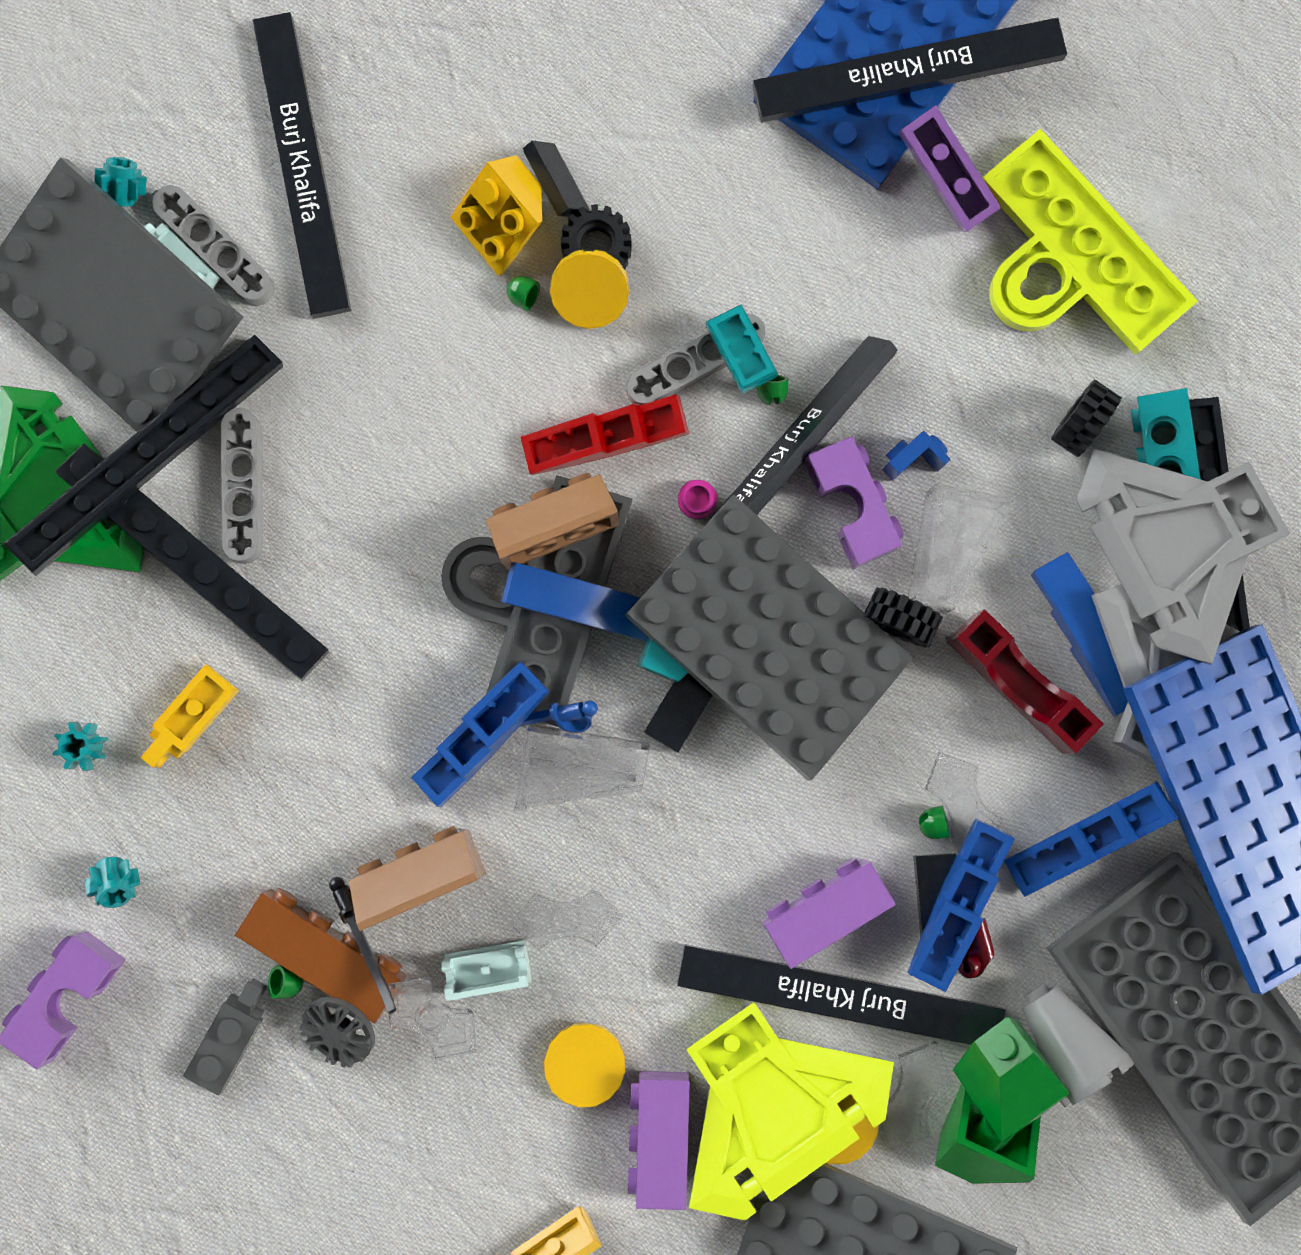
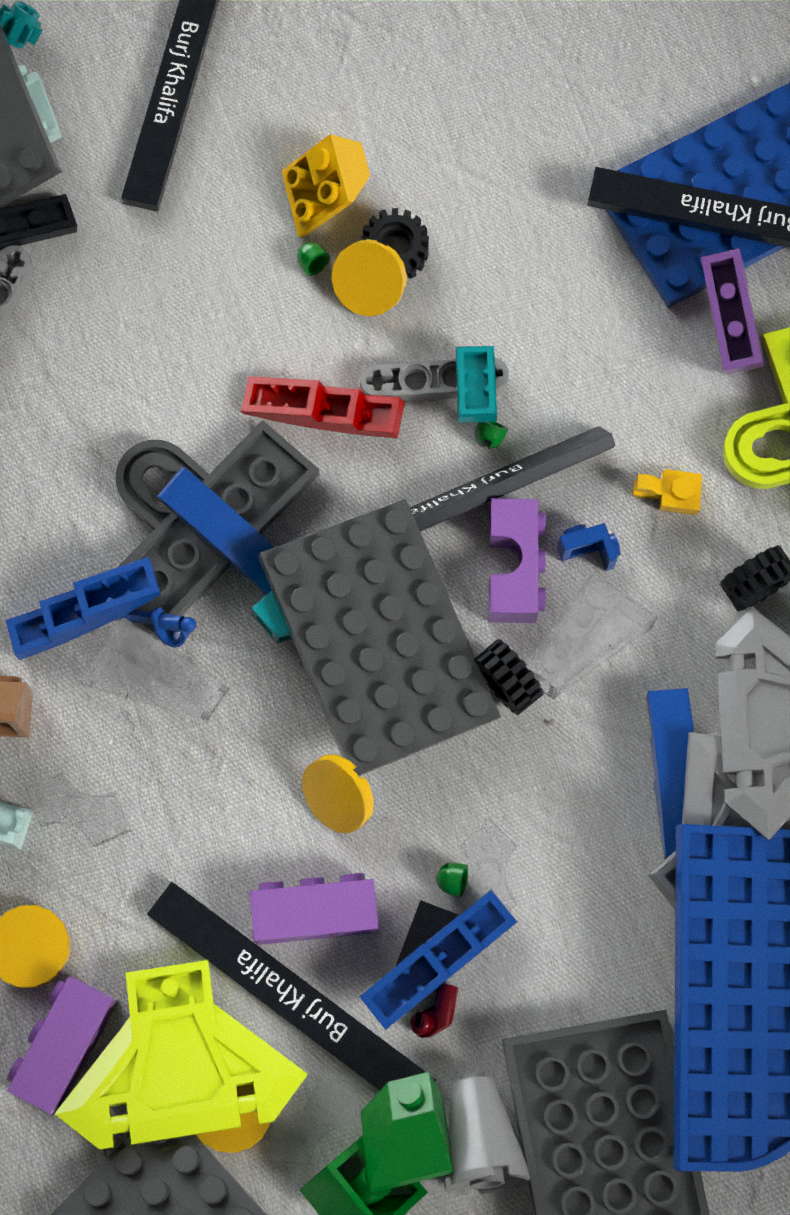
camera: 30 degrees right, 10 degrees down
(213, 245) = (70, 108): light grey beam -> none
(552, 520) = (237, 453): medium nougat slope -> none
(555, 178) = (386, 175): black tile -> none
(678, 712) = (269, 674): black tile -> none
(697, 499) = (376, 494): dark pink plate -> none
(799, 799) = (337, 793): none -> yellow tile
(966, 366) = (675, 490): none -> yellow plate
(1046, 706) = (596, 801): dark red arch -> none
(1091, 839) = (587, 955): blue slope -> none

